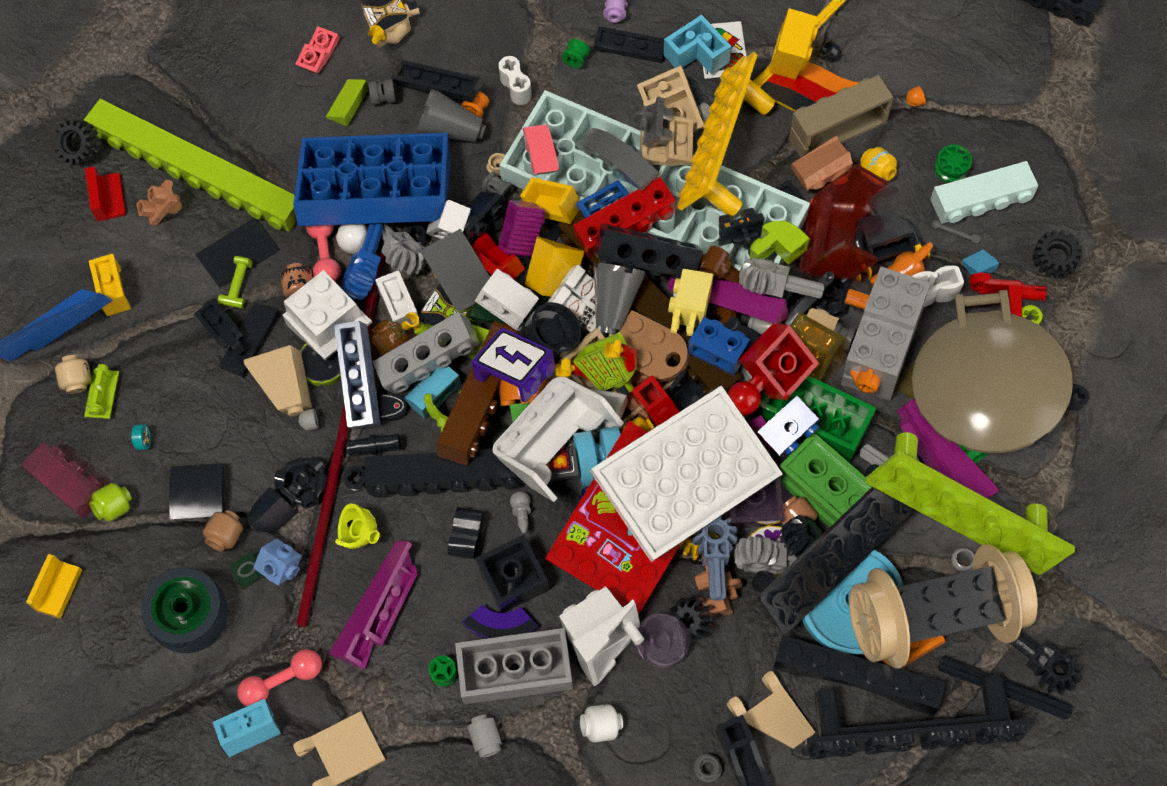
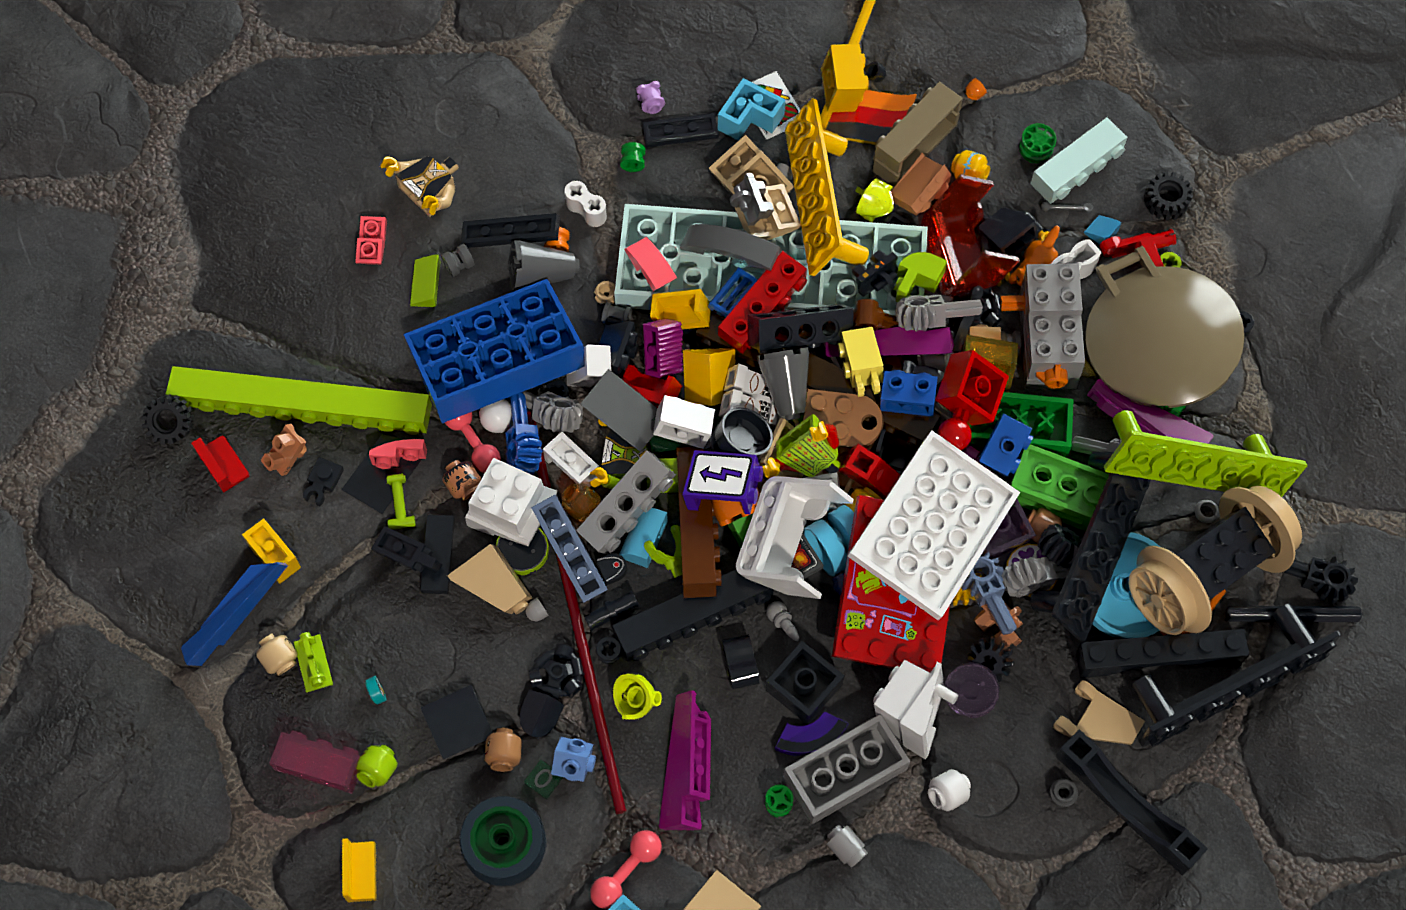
camera: 25 degrees left, 0 degrees up
(183, 238) = (322, 477): none -> black plate
(249, 237) = (389, 454): none -> coral slope
(775, 164) = (875, 200): none -> neon yellow helmet

